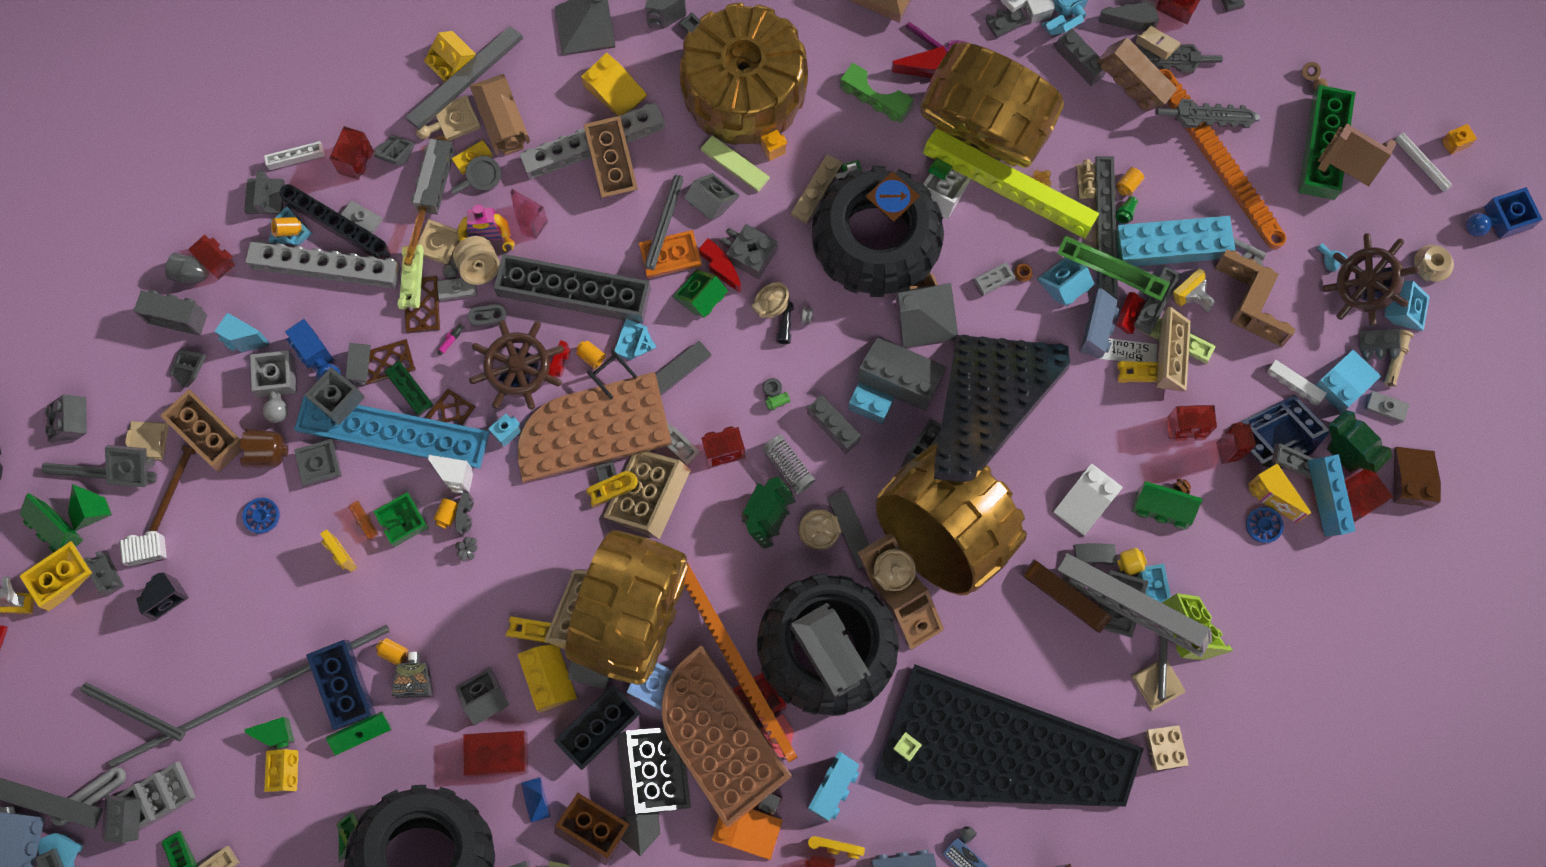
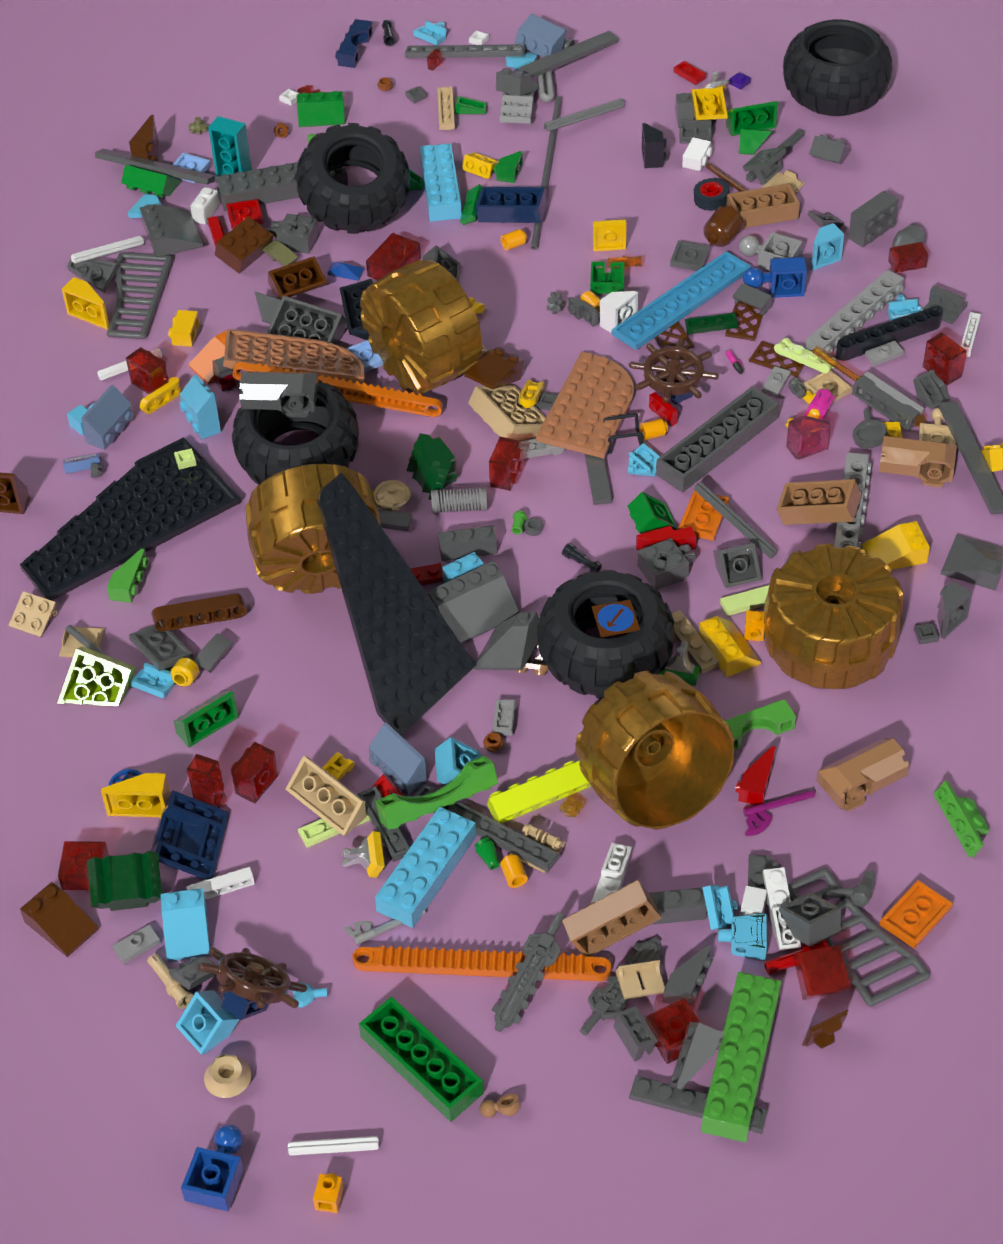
camera: 125 degrees right, 25 degrees down
(70, 606) = (684, 107): none -> dark grey slope
(197, 488) = (711, 194): none -> black wheel
(260, 515) = (674, 218): blue wheel -> none
(285, 226) = (902, 299): light orange brick -> none
(335, 396) = (730, 269): dark grey slope -> none
(339, 791) = (440, 182): none -> medium azure brick
(412, 679) = (483, 242): torso -> none
(476, 260) = (786, 386): tan wheel -> none
(487, 314) = (736, 386): dark grey plate -> none
(505, 429) = (628, 352): medium azure brick -> none
(594, 527) = (496, 369): none -> reddish brown slope
(771, 300) = (606, 553): tan piece -> none
(806, 155) = (727, 645): none -> yellow slope
(807, 316) = (574, 571): light grey bush -> none
(888, 442) = (428, 574): none -> red plate
(1075, 693) = (125, 580): none -> bright green slope
(1087, 499) = (261, 676): white slope -> none
(1091, 111) = (613, 871): none -> white slope
(1131, 351) = (363, 778): white sticker -> none
(1135, 603) = (146, 627): light grey tile -> none
(1182, 486) = (210, 743): dark orange plate -> none
(1199, 24) = (634, 1032): none -> dark grey hinge
(1260, 283) = (328, 901): medium nougat bracket -> none
(1291, 460) = (146, 826): dark grey tile -> none
(1331, 495) = (102, 830): dark azure brick -> none
(1356, 154) = (378, 1039): medium nougat bracket -> none

